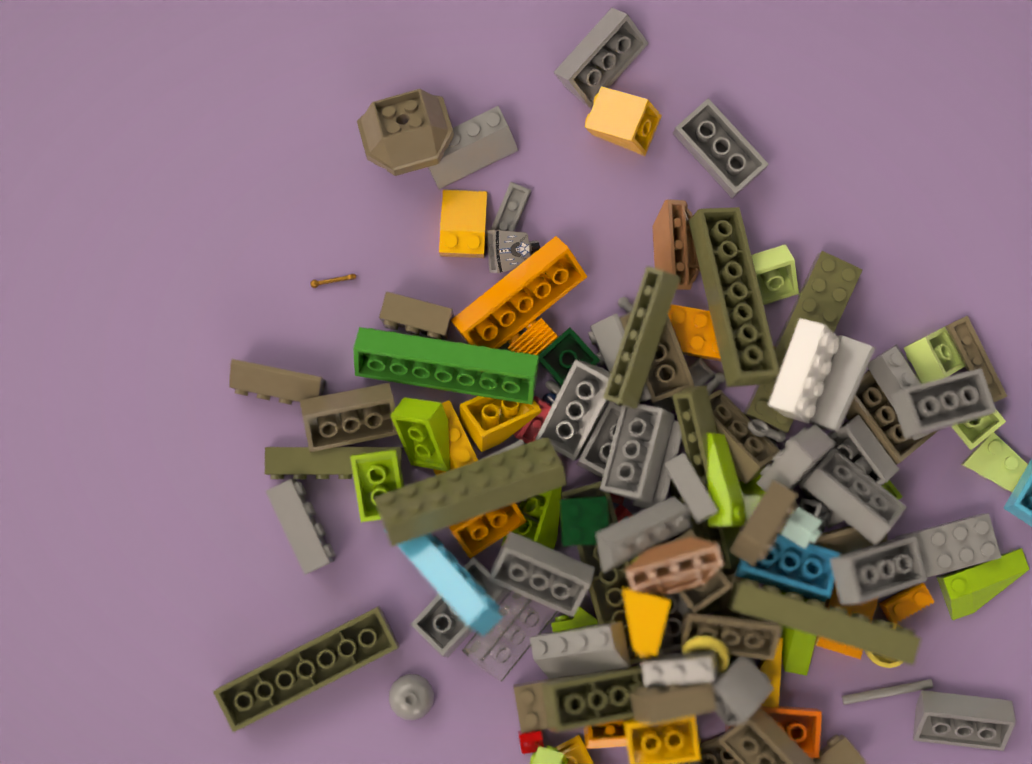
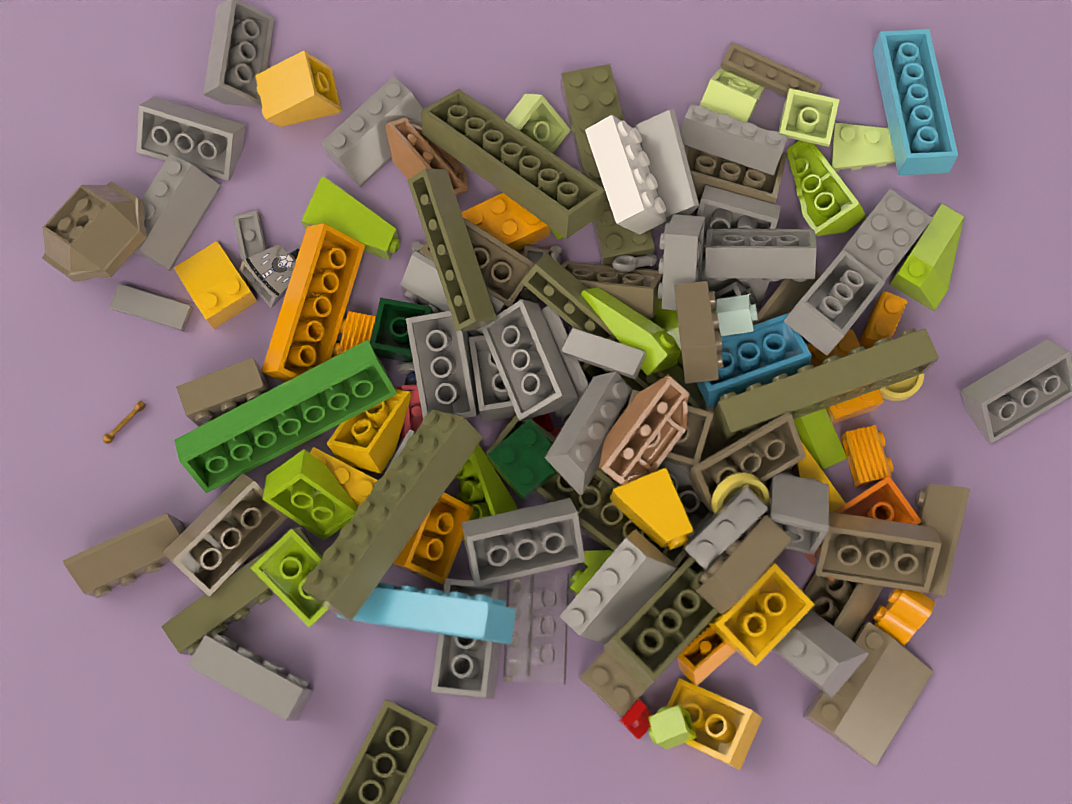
camera: 30 degrees left, 10 degrees down
(407, 208) = (151, 307): none -> light grey tile
(411, 697) = (487, 767): light grey cylinder -> none
(521, 98) = (191, 135): none -> light grey slope
(588, 244) = (349, 216): none -> lime slope
(642, 194) = (361, 141): none -> light grey slope
(720, 148) = (407, 52): light grey brick -> none
(820, 685) = (866, 455): none -> light orange brick
(888, 691) = (931, 417): light grey bar -> none
(940, 479) = (823, 195): none -> lime wedge
(943, 403) = (772, 114): light grey brick -> none

